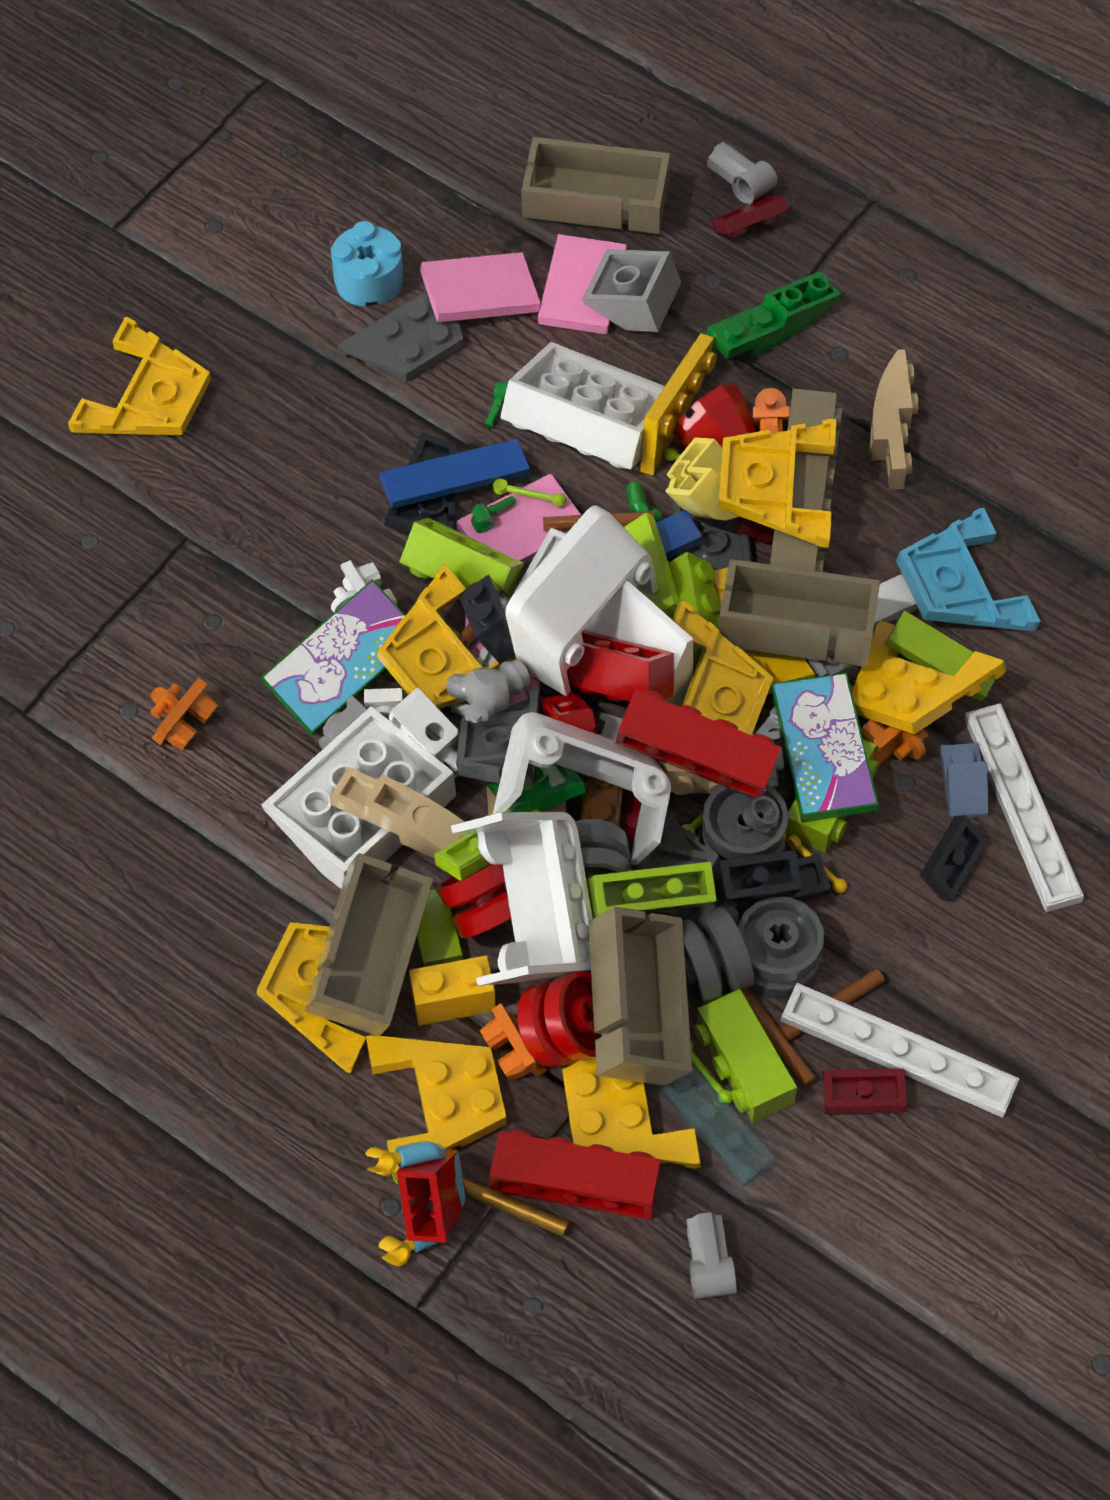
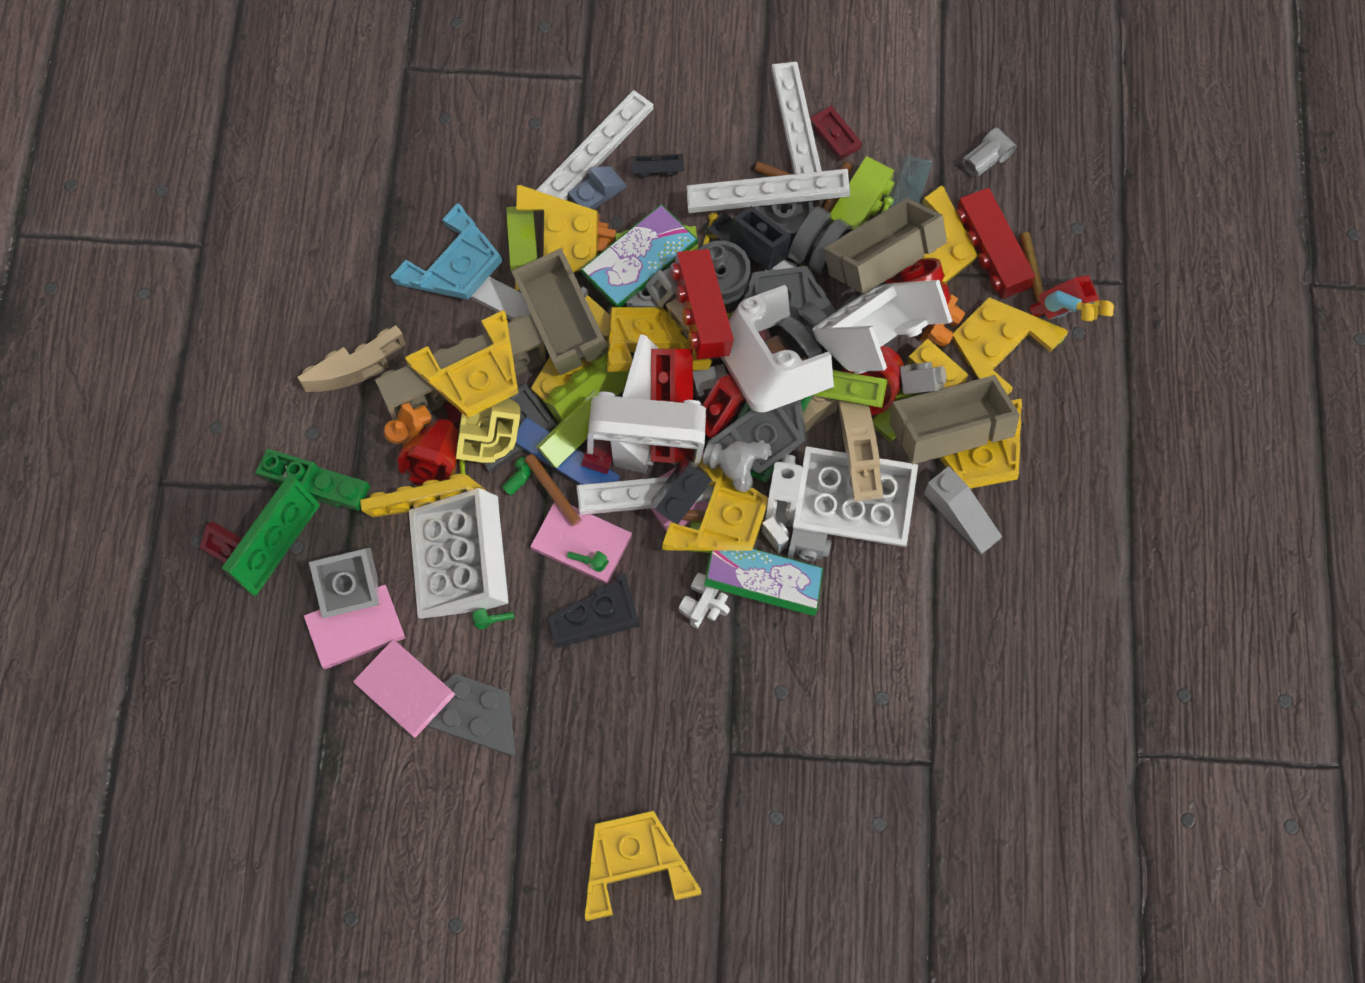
camera: 125 degrees left, 10 degrees up
(173, 727) = (867, 656): orange hips -> none
(264, 911) = (962, 510): none -> light grey slope
(367, 264) = (421, 764): medium azure brick -> none
(434, 545) = (641, 551): lime brick -> none
(444, 940) = (922, 377): none -> light grey brick
(454, 473) = (575, 600): blue tile -> none
(501, 487) = (562, 568): lime hinge -> none
(595, 185) = (267, 660): dark tan piece -> none
(653, 889) = (814, 276): lime brick -> none
(729, 242) = (271, 536): none -> green tile
(747, 179) = (194, 568): light grey piece -> none
(812, 926) = (768, 191): none -> white tile

